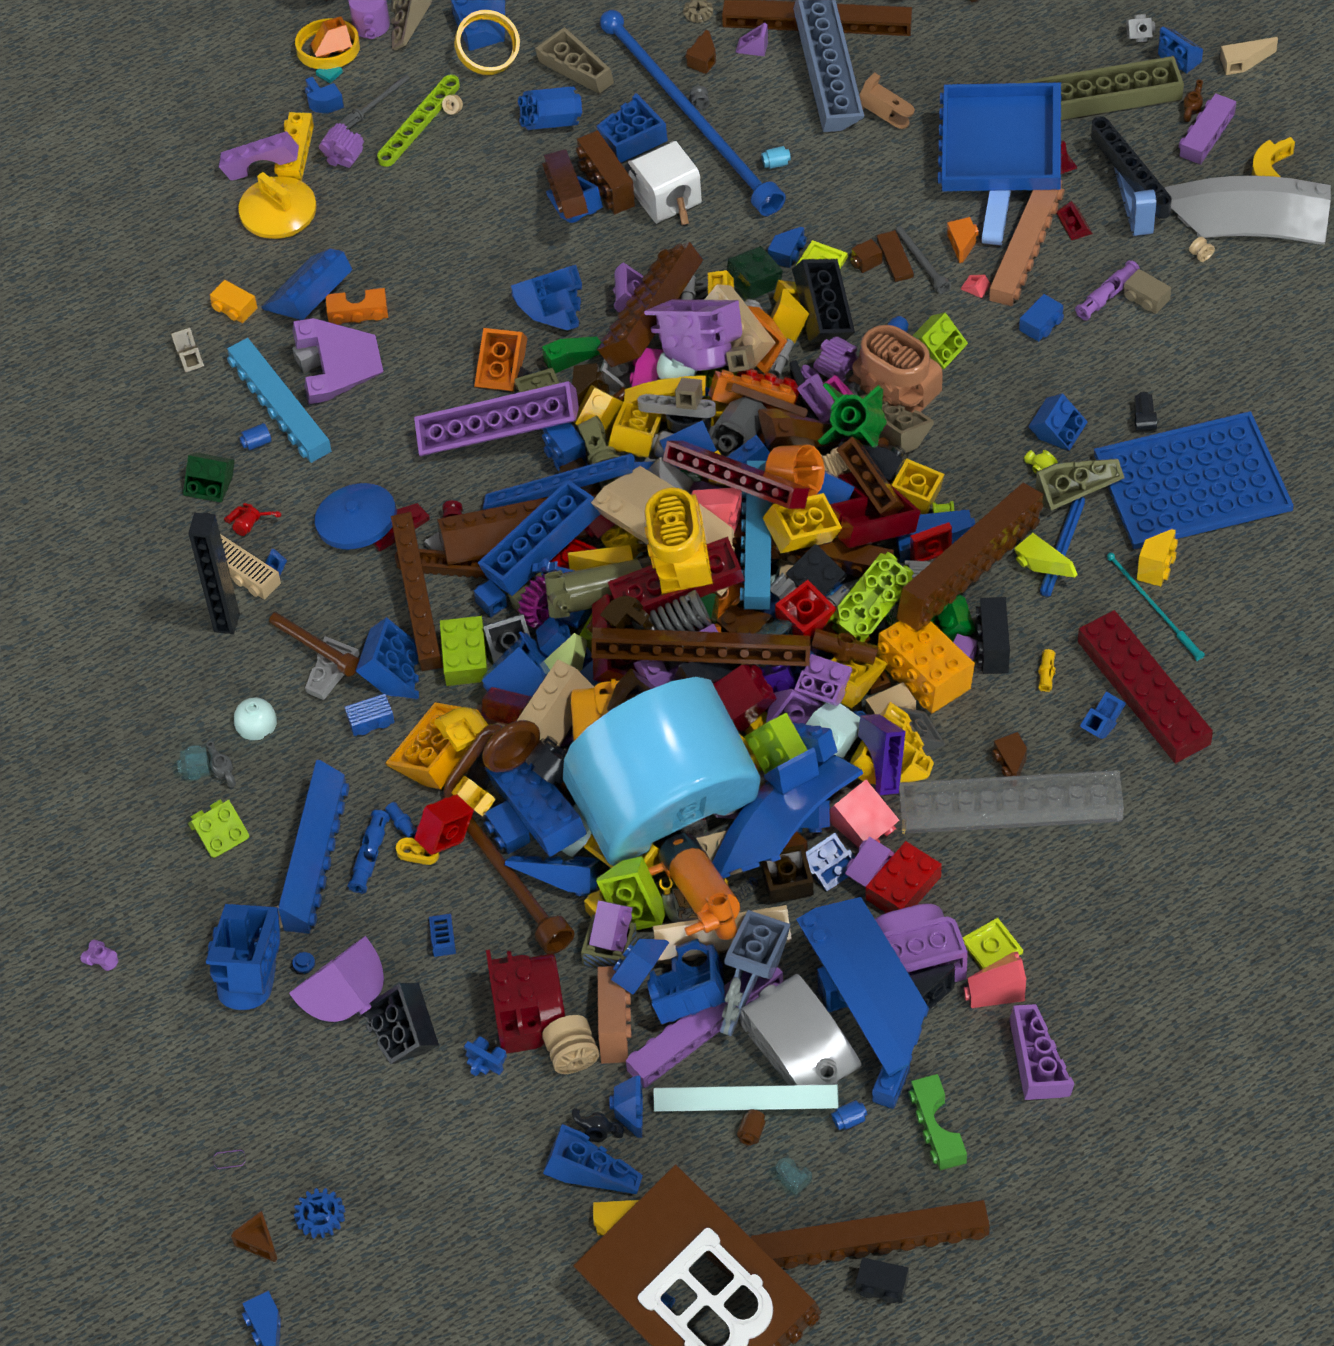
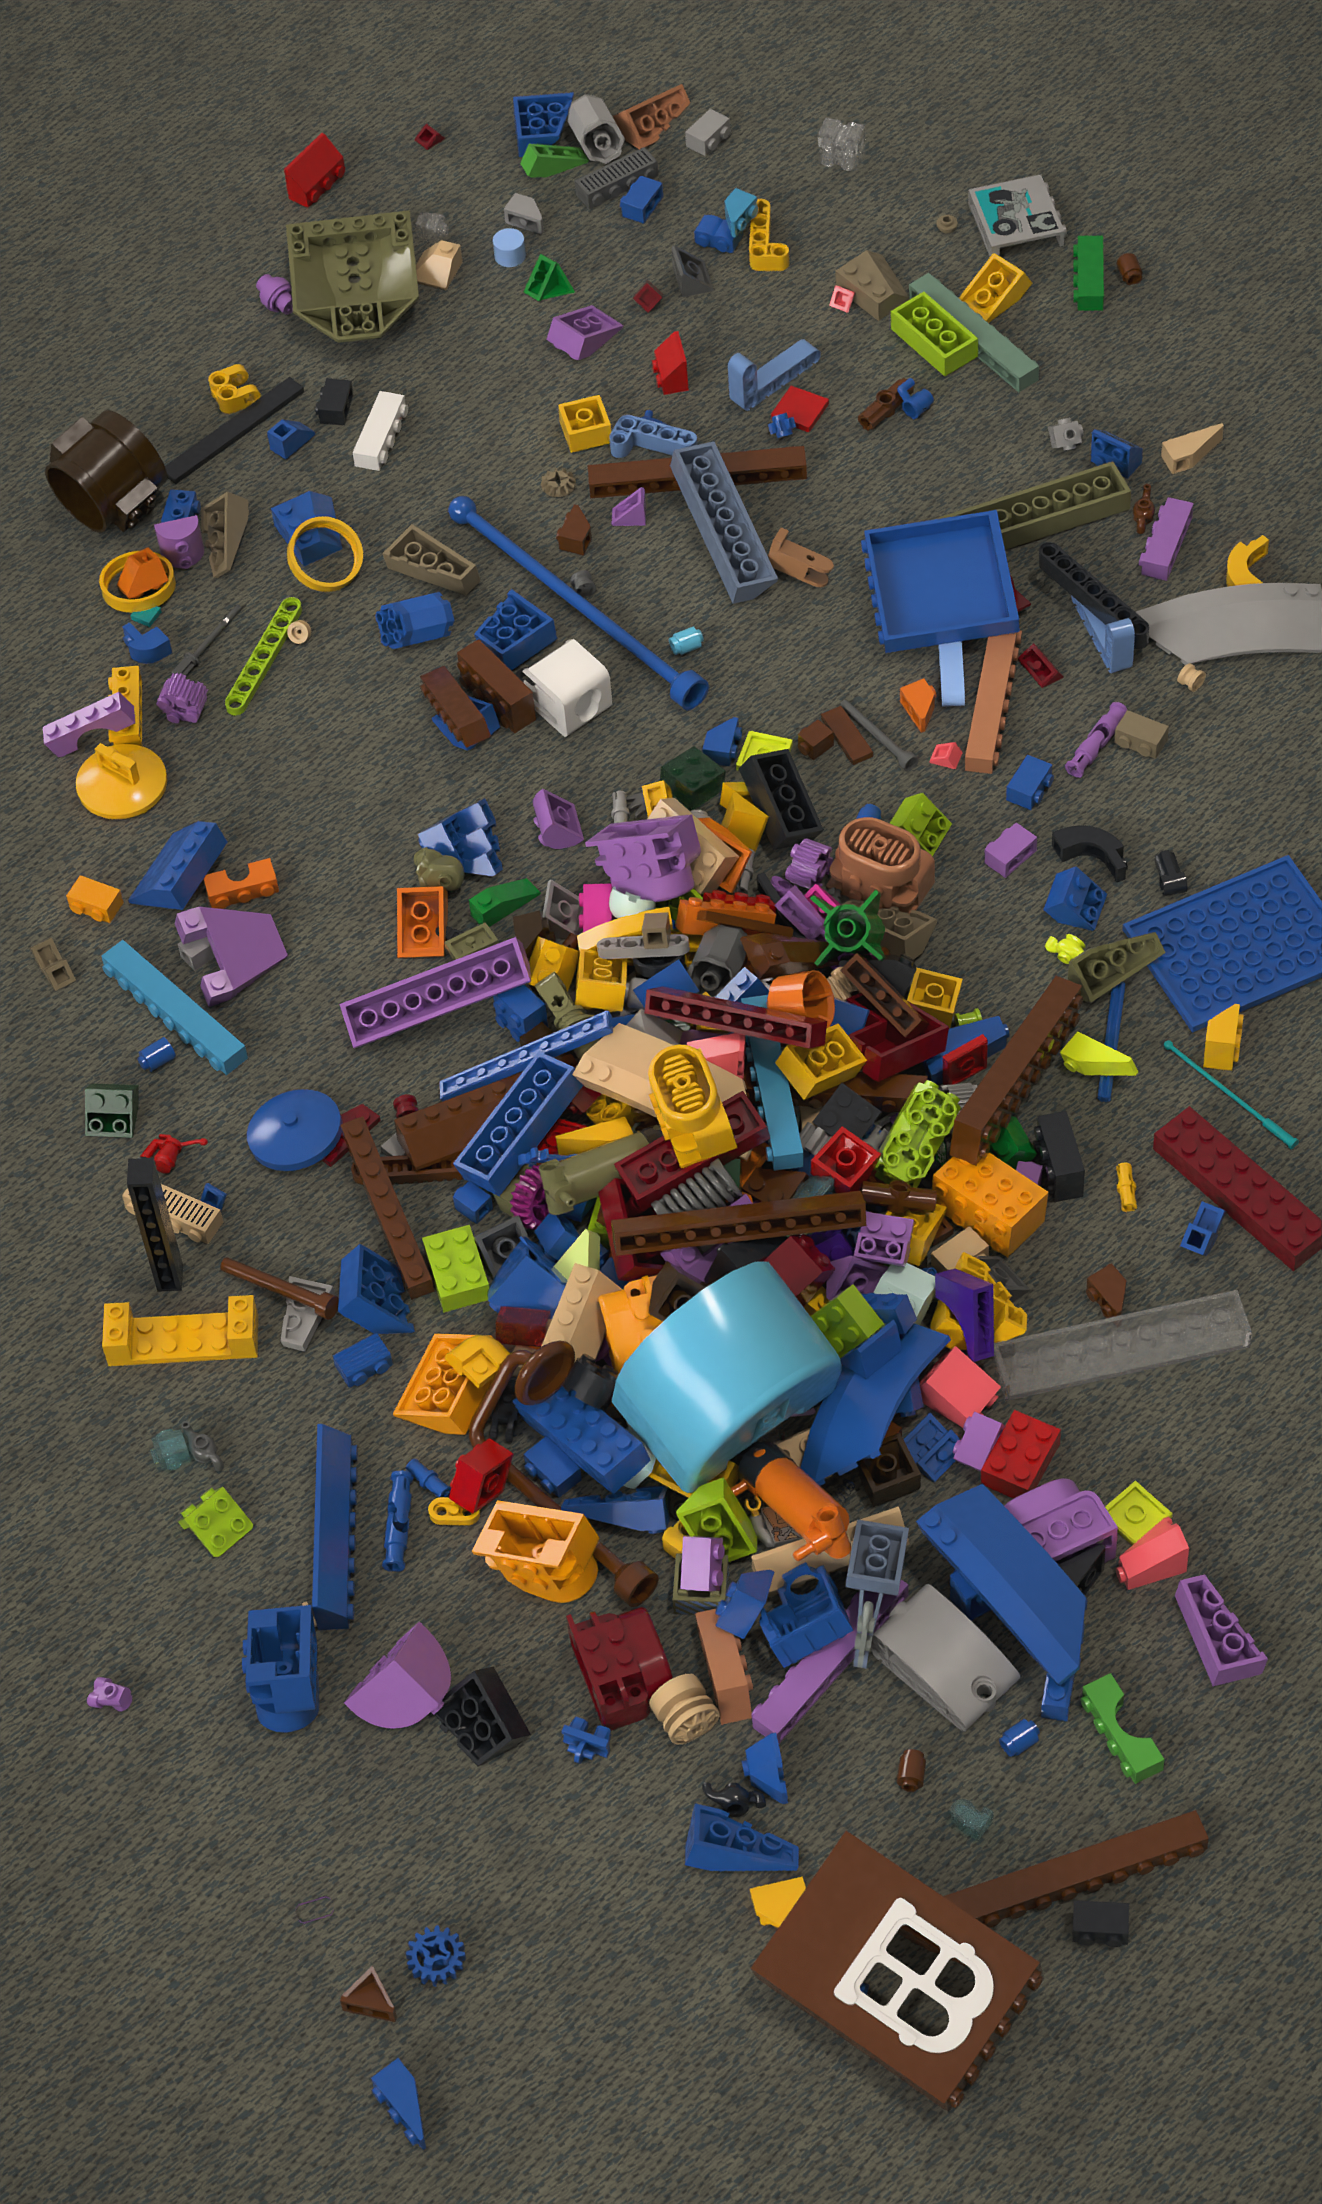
camera: 10 degrees left, 0 degrees up
(223, 673) = (180, 1336): none -> yellow plate
(254, 718) = (229, 1386): light aqua cylinder -> none
(303, 962) = (350, 1663): blue plate -> none
(442, 948) = (511, 1620): blue slope -> none
(474, 795) = (507, 1435): yellow brick -> none
(479, 894) = (540, 1550): none -> light orange brick
(523, 318) = (438, 869): none -> olive head
(623, 610) = (644, 1193): dark brown brick -> none
(662, 283) = (591, 809): reddish brown brick -> none
(682, 211) = (594, 720): medium nougat pin -> none
(740, 358) = (705, 880): dark tan brick -> none
(746, 1097) = (898, 1737): light aqua tile -> none
(1012, 372) = (1010, 849): none -> medium lavender brick
(1082, 375) = (1093, 842): none -> black arch

